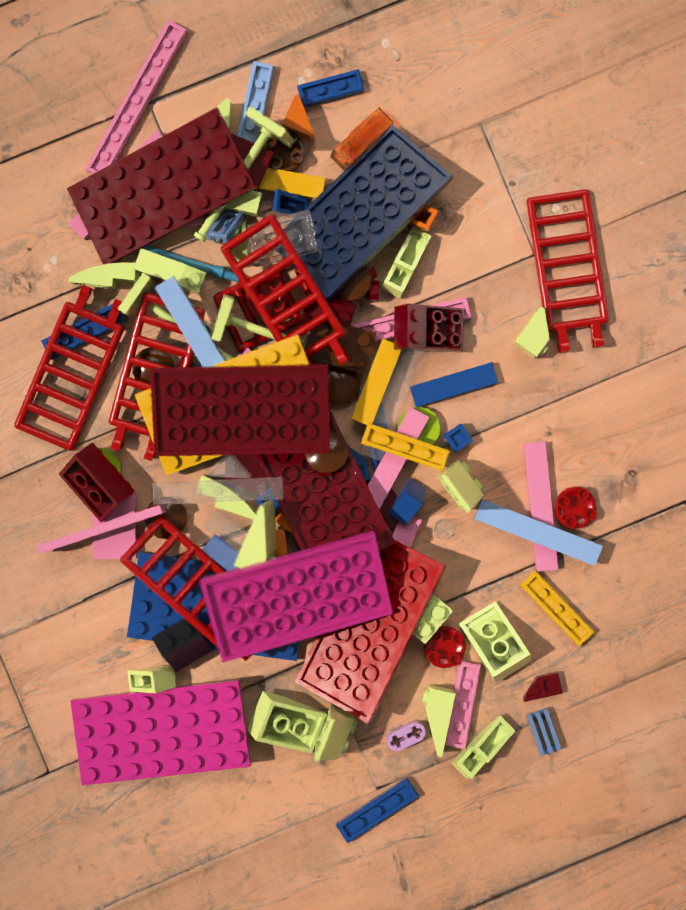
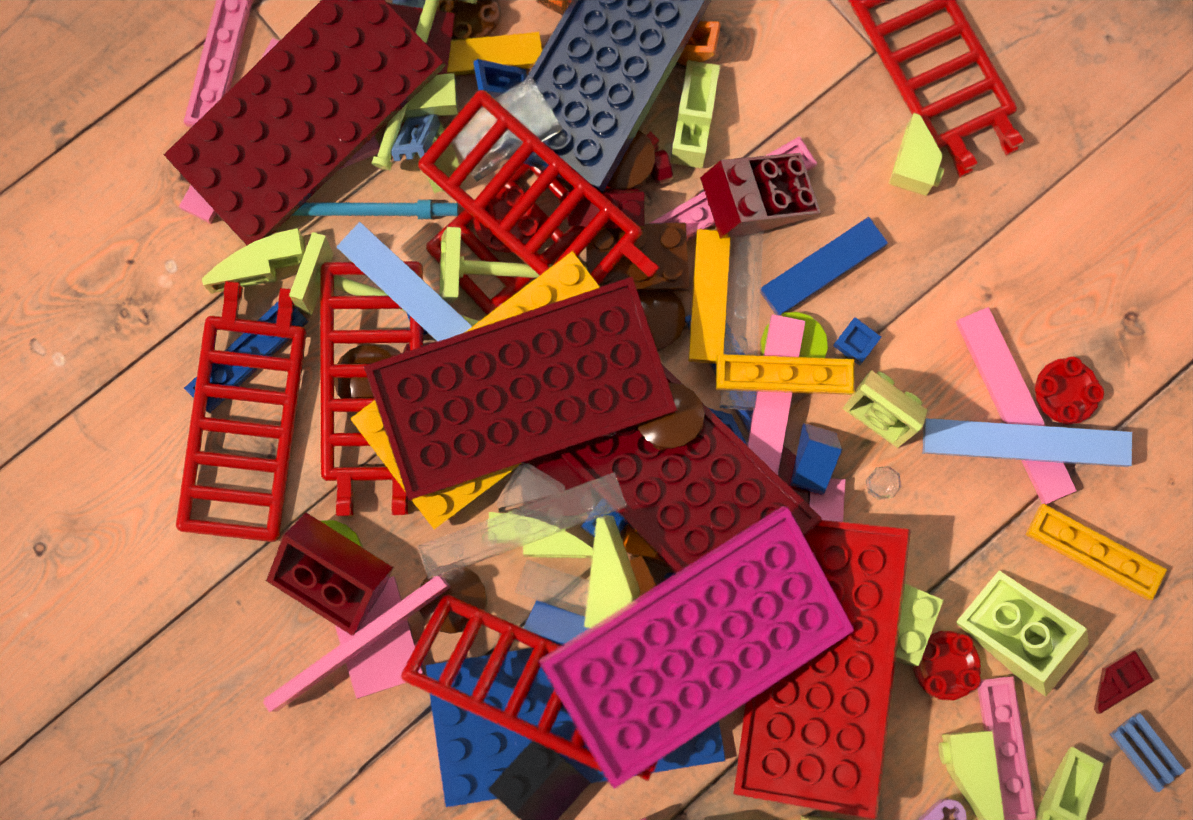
camera: 20 degrees left, 10 degrees down
(165, 268) = (339, 219): yellowish green slope -> none

